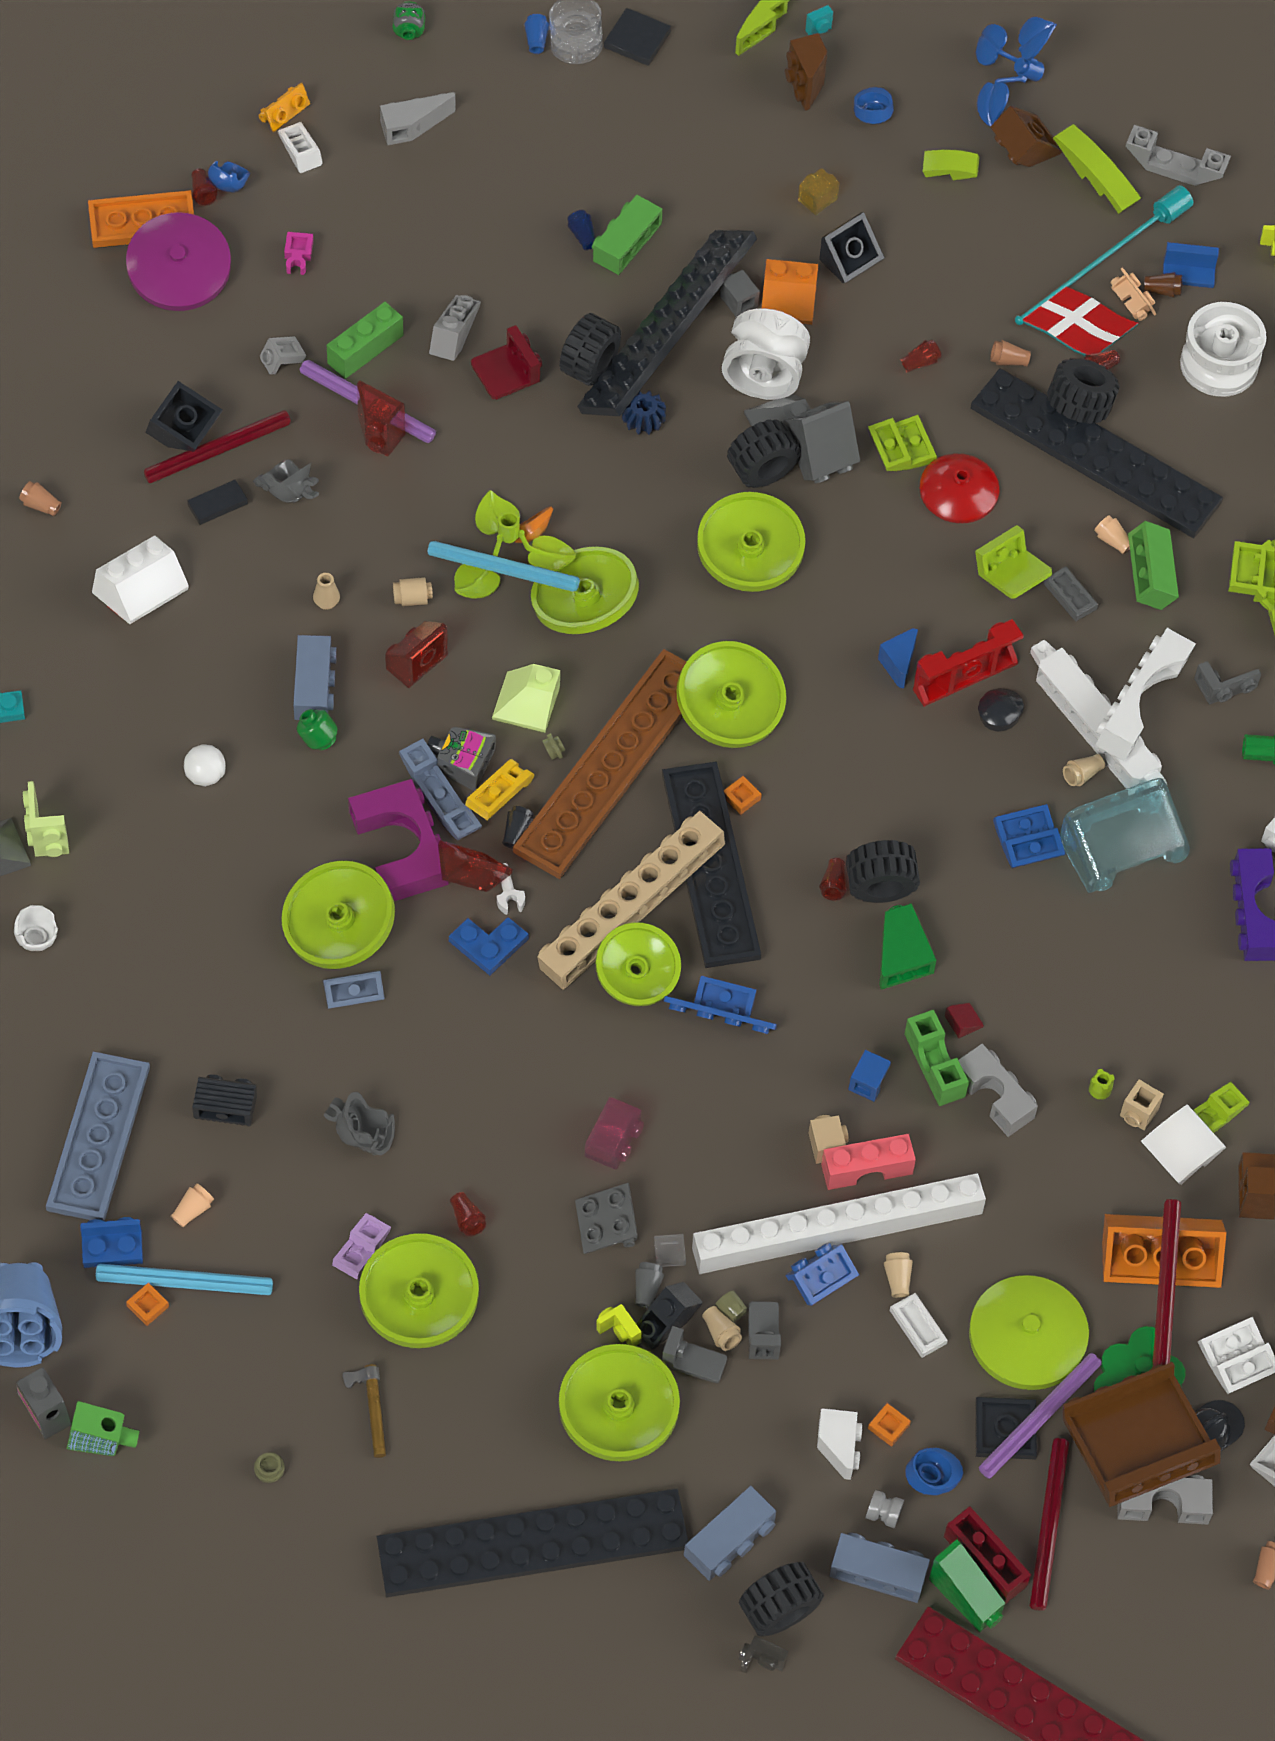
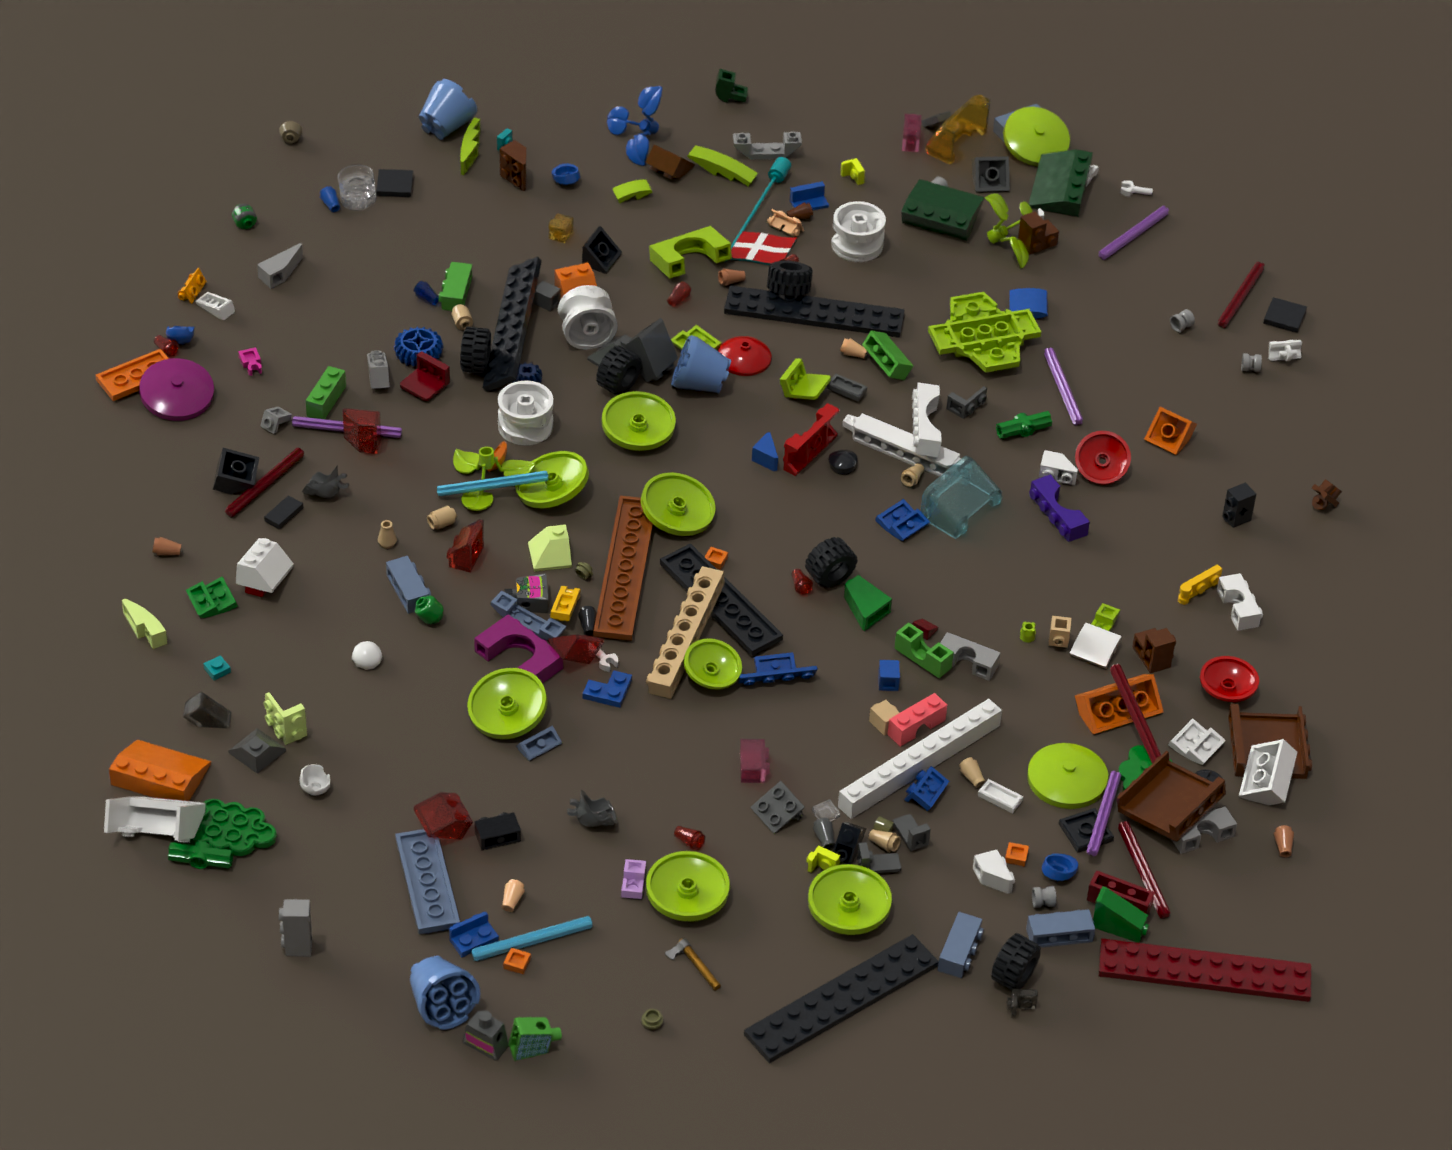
camera: 25 degrees left, 15 degrees down
(58, 598) = (211, 598): none -> green slope
(162, 1053) = (444, 816): none -> clear red slope
(529, 307) = (416, 340): none -> blue gear
(605, 472) = (525, 413): none -> white piece
(608, 285) = (462, 317): none -> tan brick
(879, 491) = (700, 367): none -> medium blue cone
(999, 282) = (668, 253): none -> lime arch
(1171, 45) = (727, 88): none -> dark green brick

